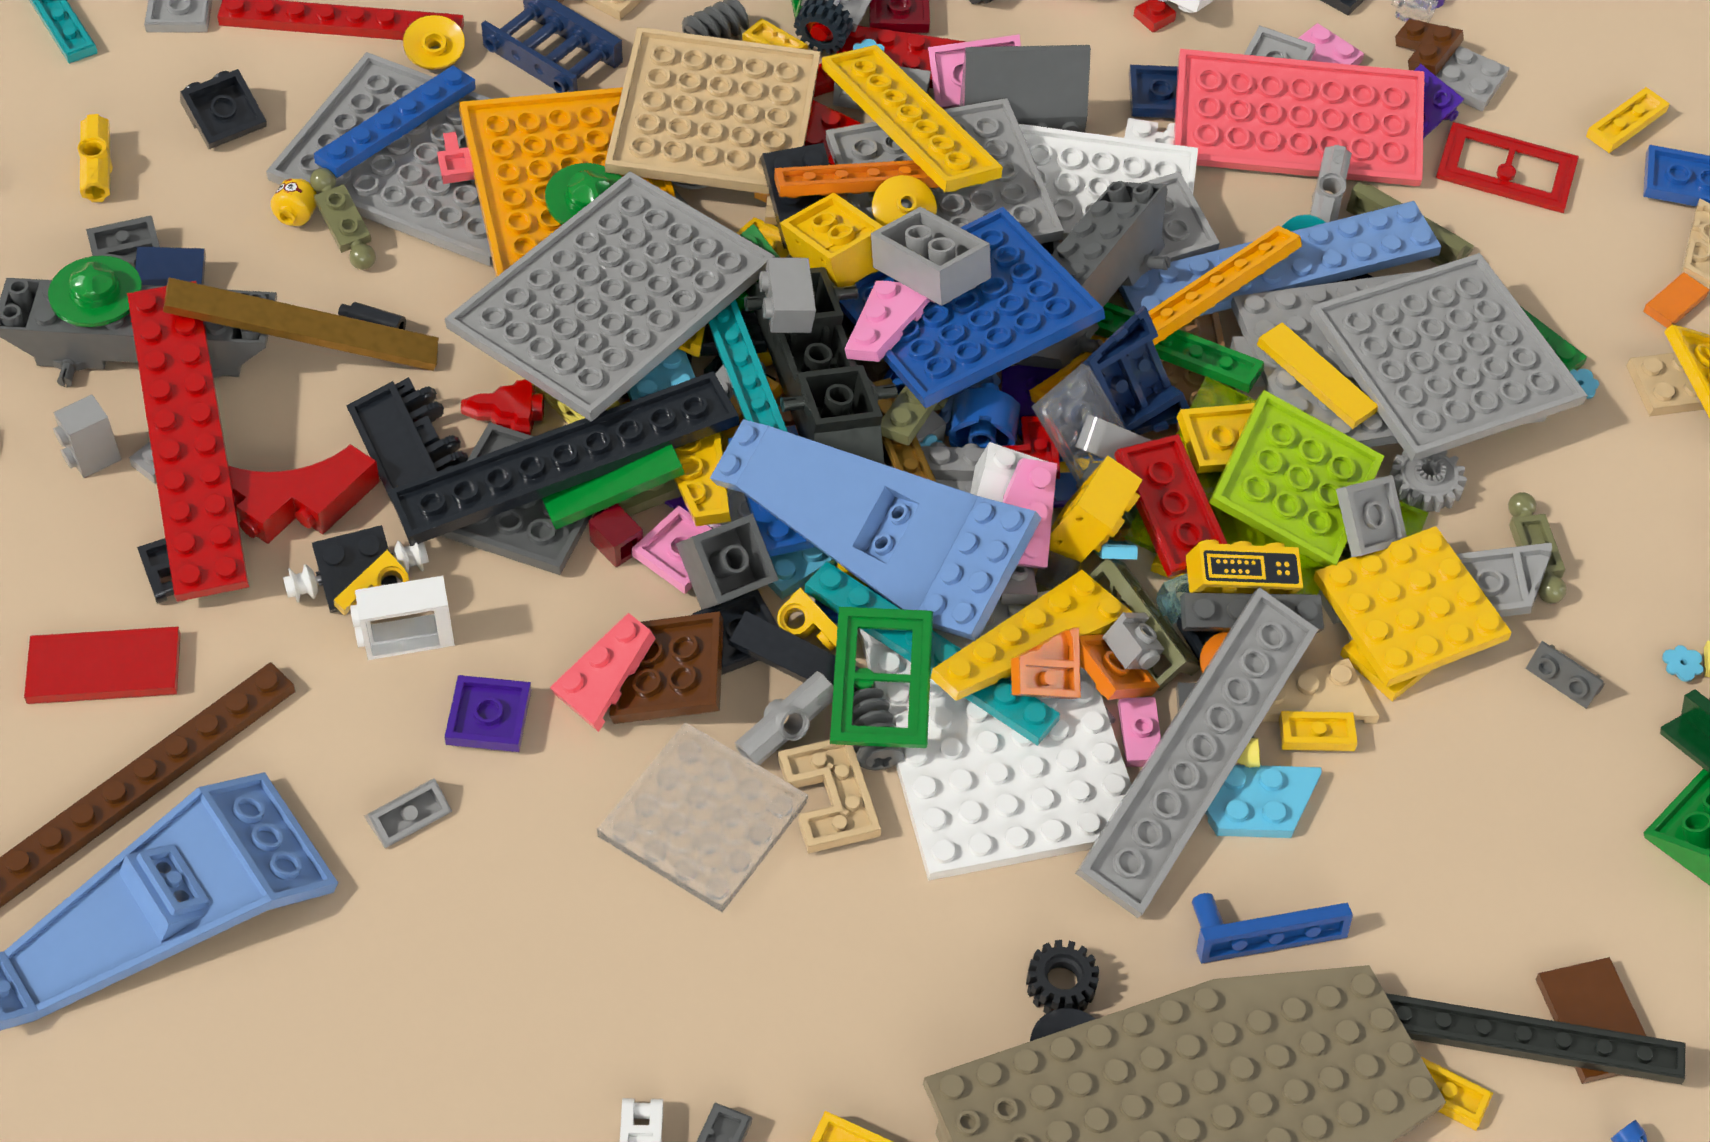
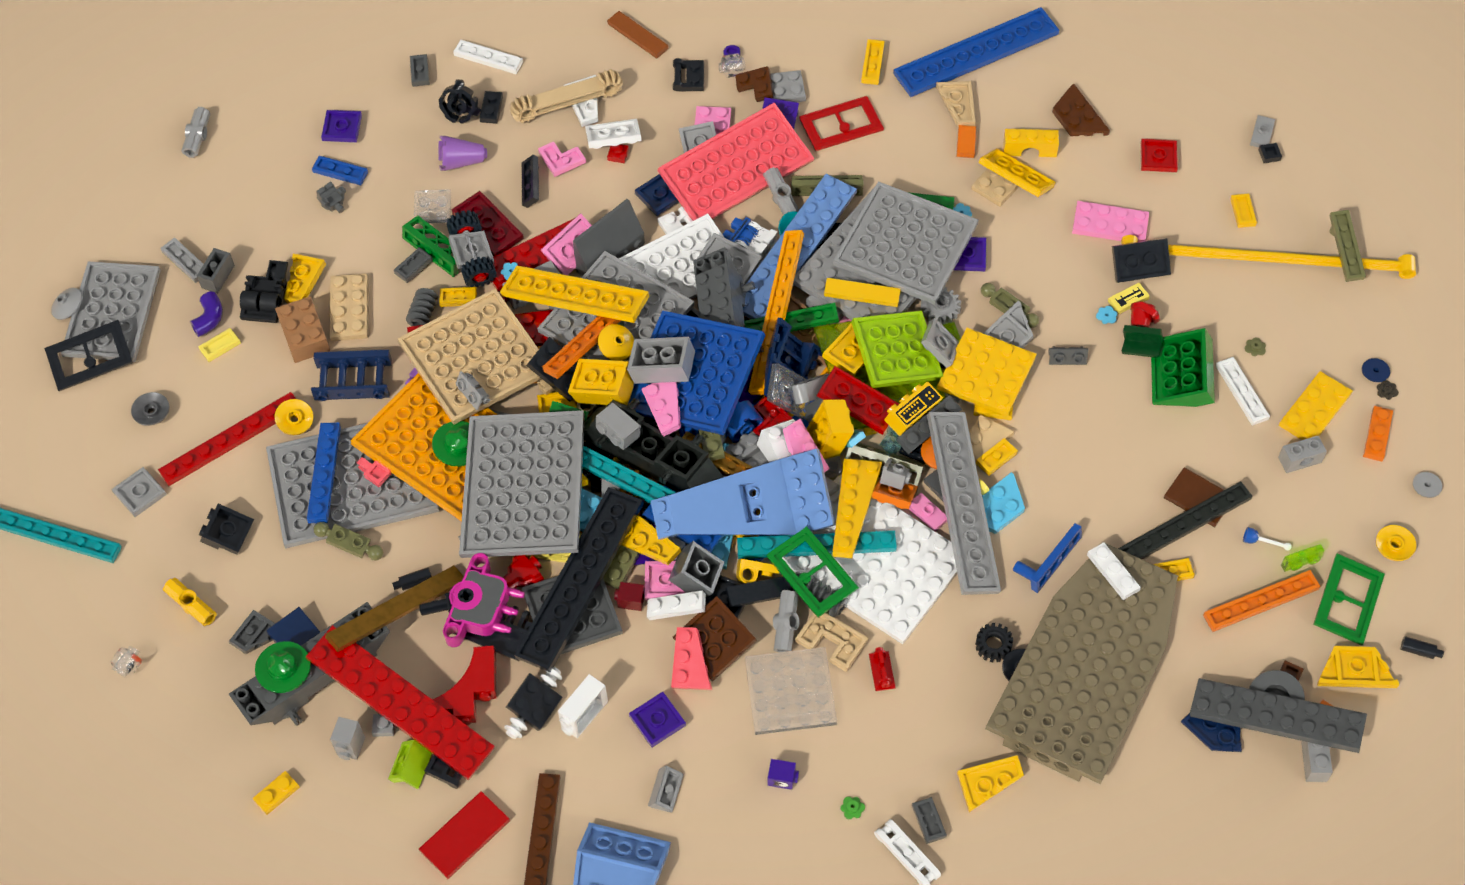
camera: 35 degrees left, 5 degrees up
(130, 529) = (410, 764): none -> lime panel
(294, 202) = (315, 550): yellow head -> none
(371, 577) = (552, 701): yellow plate -> none
(403, 391) = (483, 610): none -> piece
(575, 914) = (782, 774): none -> dark purple brick
(613, 487) = (614, 575): green tile -> none
(629, 1051) = (850, 812): none -> bright green plant
(660, 588) = (676, 605): none -> white plate
(664, 131) = (467, 385): none -> light grey hinge
(860, 889) = (882, 670): none -> red hinge
(1049, 668) = (875, 513): orange wing -> none
(1231, 213) = (751, 236): none -> hips
(1341, 1014) = (1113, 571): none -> white plate
(1538, 445) = (973, 256): none -> dark purple plate

